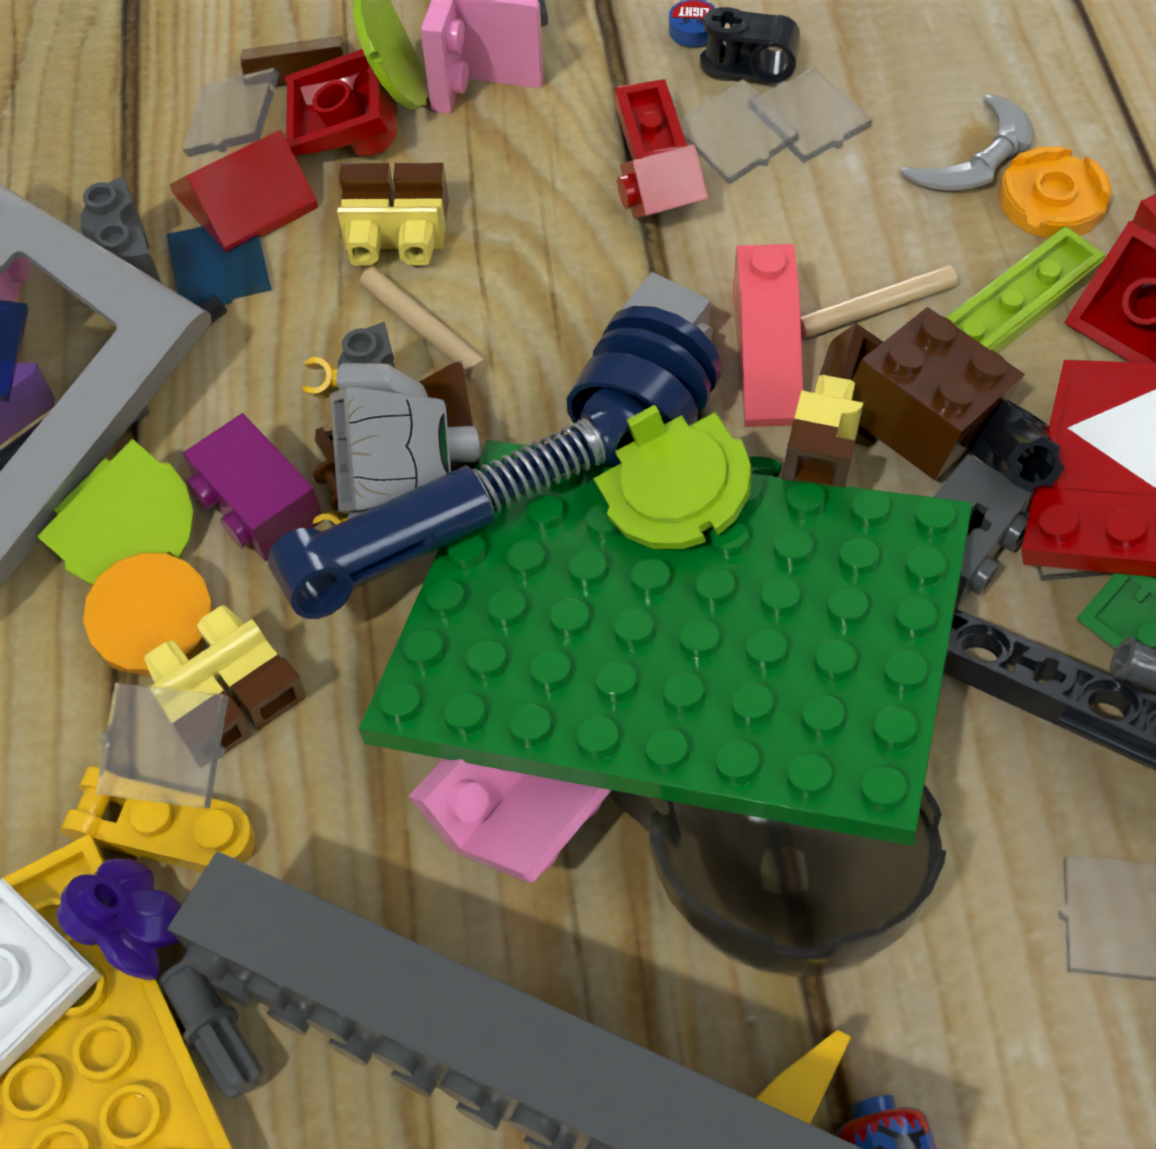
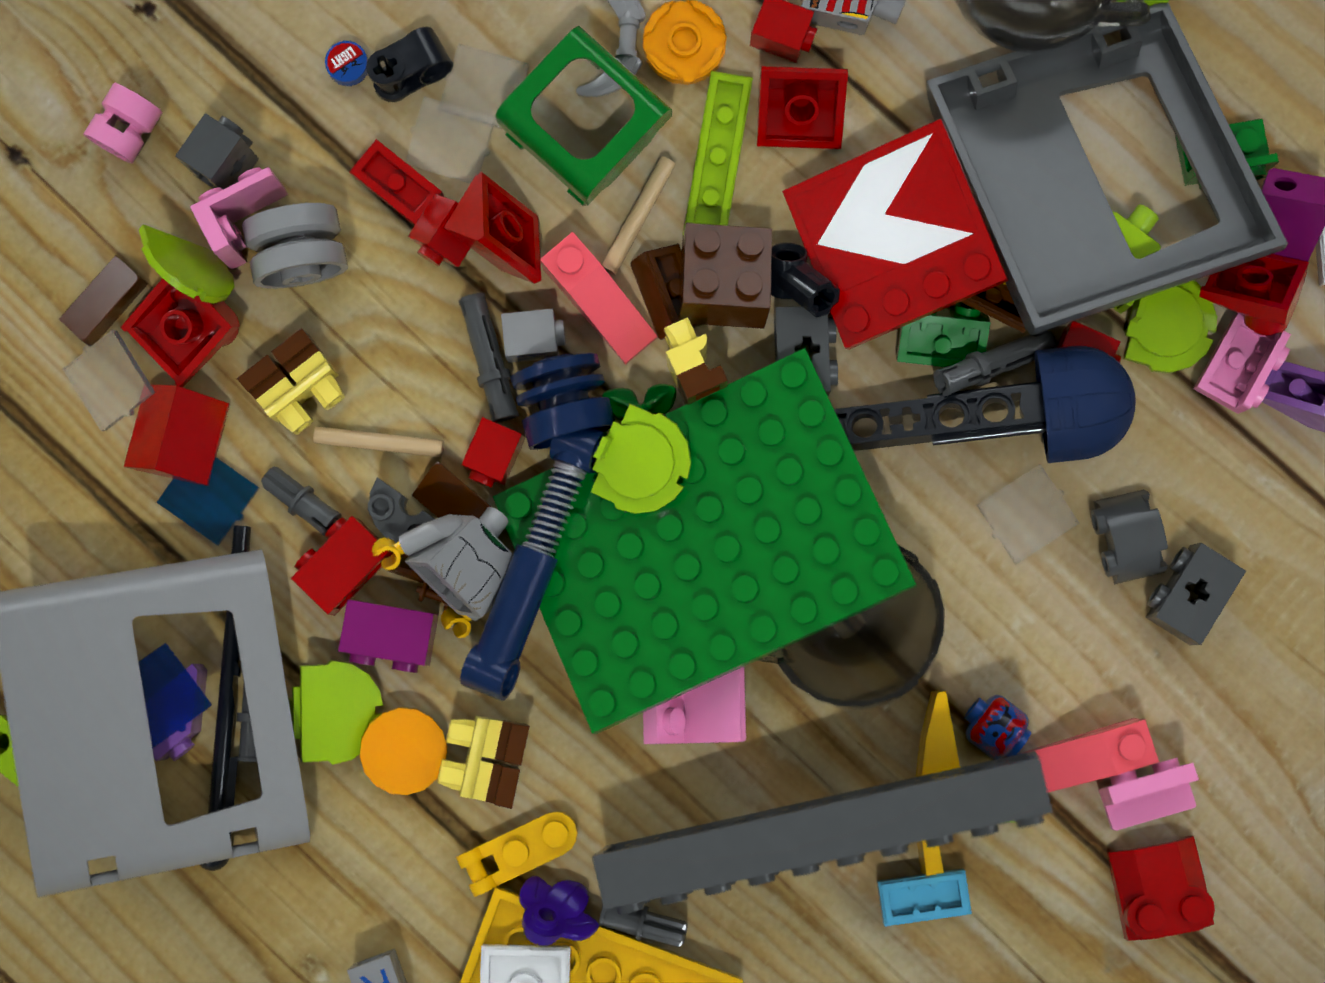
camera: 40 degrees left, 25 degrees up
(115, 224) = (134, 538): dark grey cylinder -> none
(162, 745) = (494, 819): clear piece -> none
(270, 391) = (339, 565): none -> red brick
(295, 316) = (300, 500): none -> dark grey axle
(504, 96) = (295, 245): none -> light grey wheel
(525, 397) = (492, 453): none -> red brick
(619, 286) = (492, 372): none -> dark grey pin
(715, 201) = (498, 228): none -> red slope
(899, 208) = (582, 176): none -> green piece

